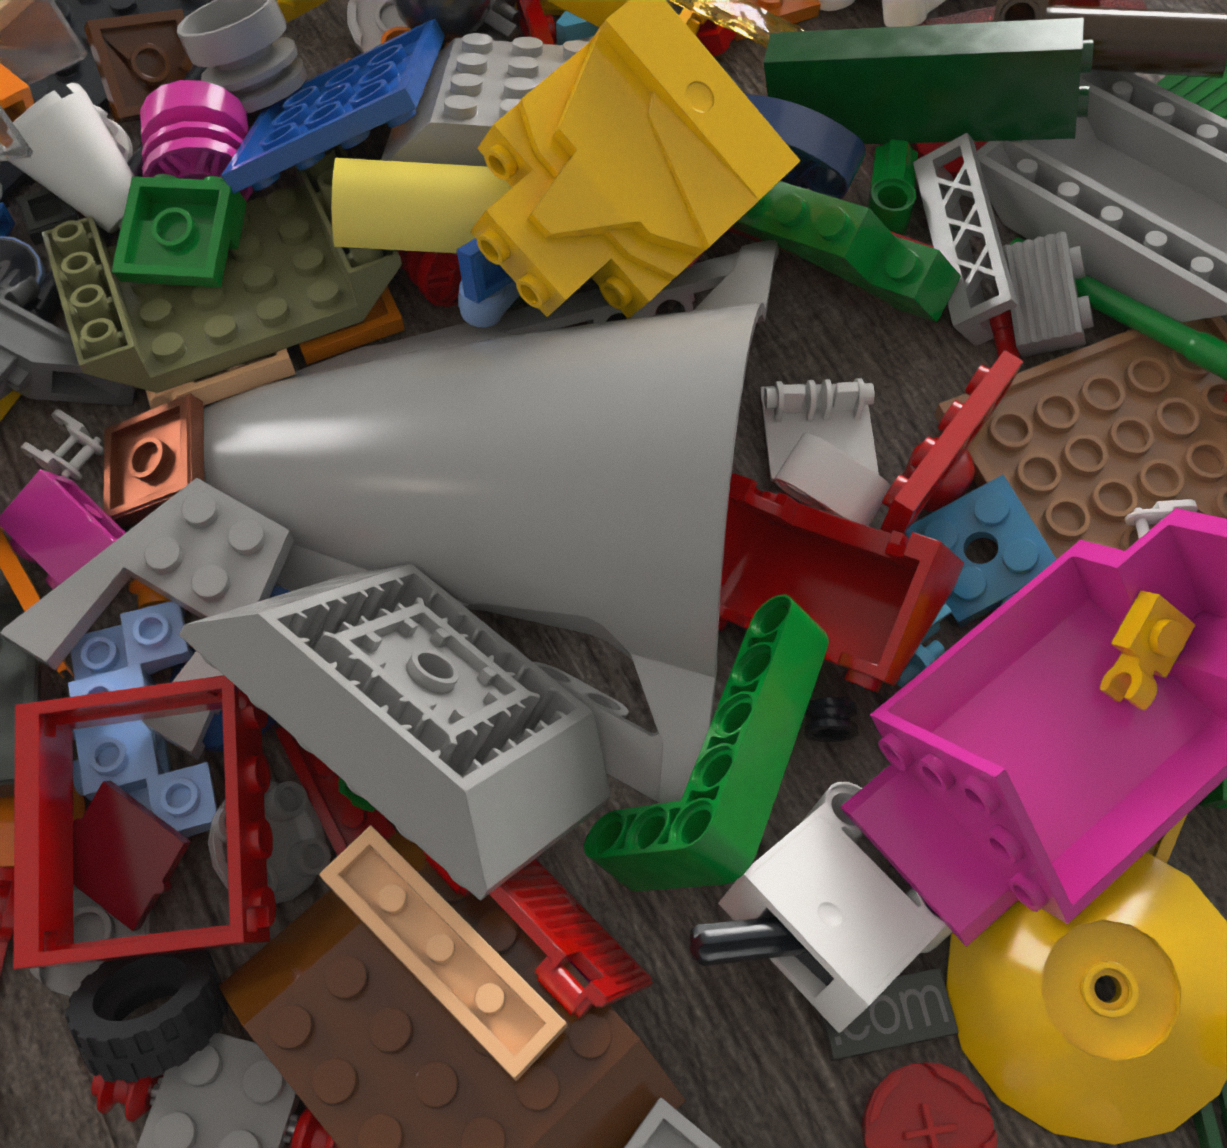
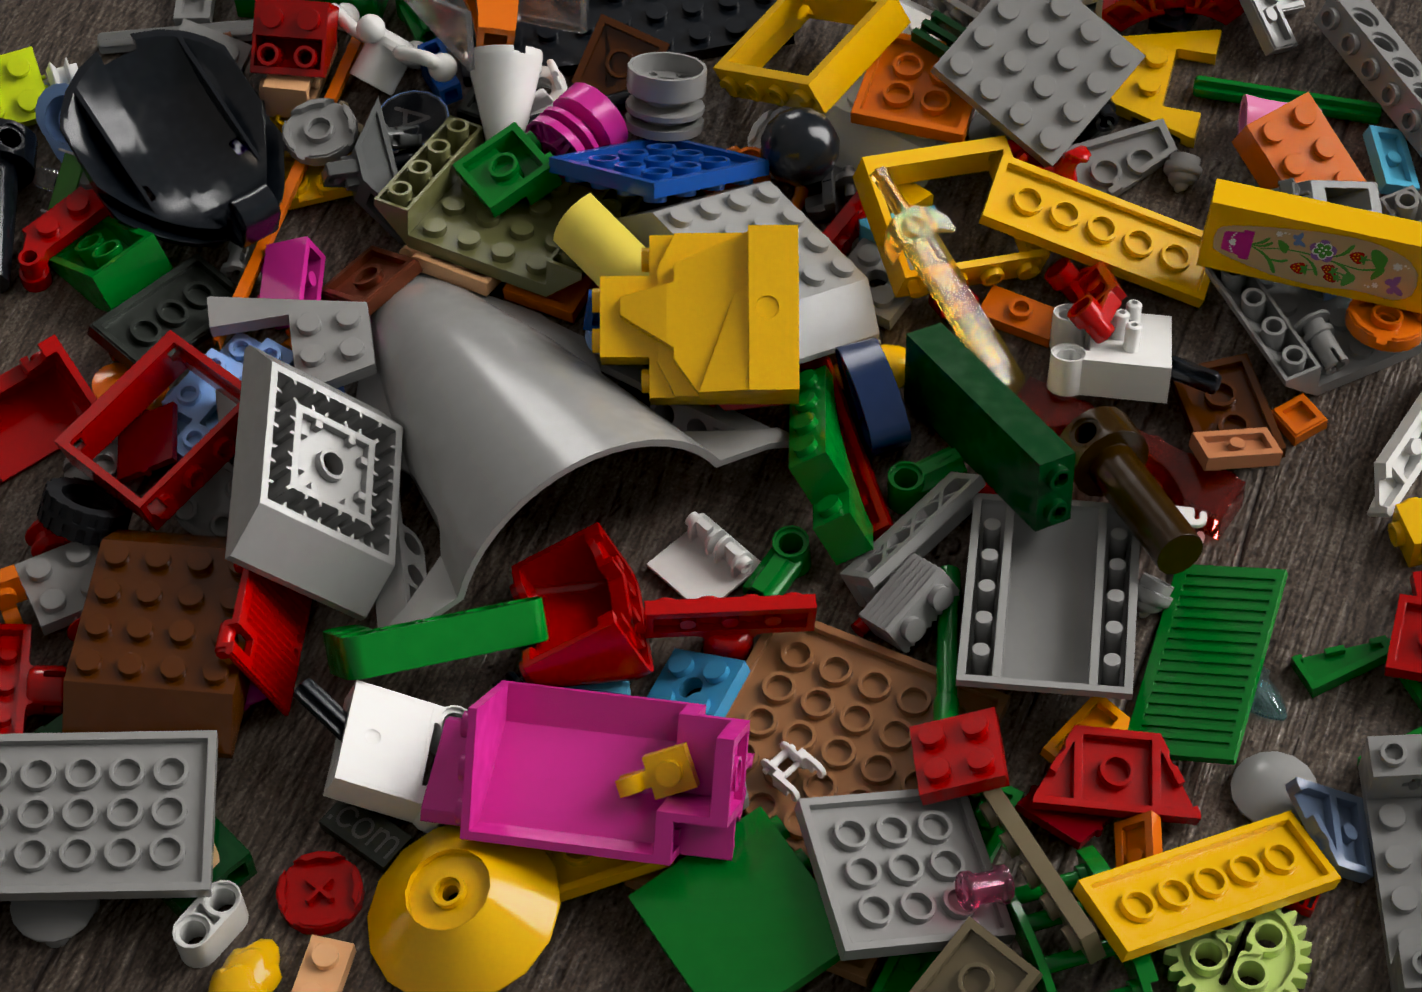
camera: 55 degrees right, 10 degrees down
(53, 461) = (358, 237): white piece -> none
(444, 952) = (197, 578): light nougat plate -> none
(831, 480) = (661, 576): white beam -> none
(892, 372) = (778, 568): none -> green piece

